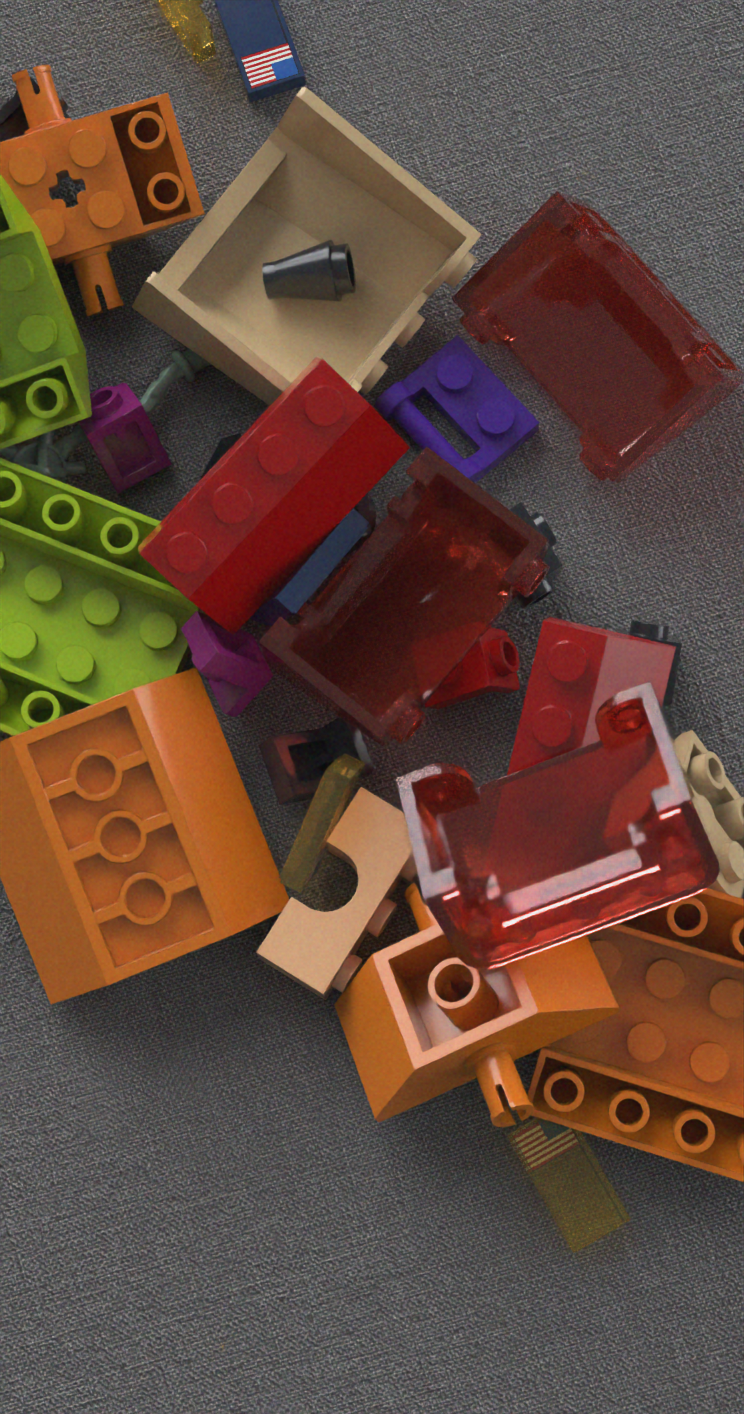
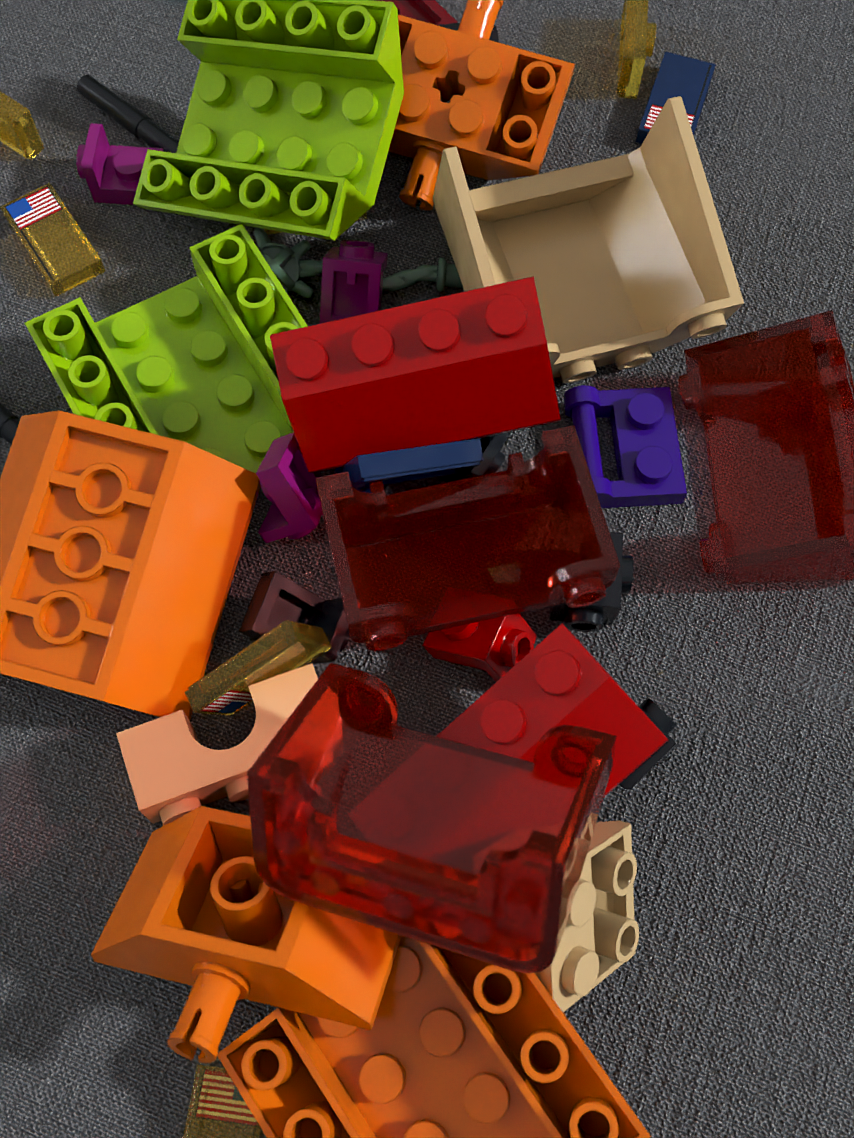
camera: 30 degrees right, 10 degrees down
(312, 274) = (589, 269): black cone -> none

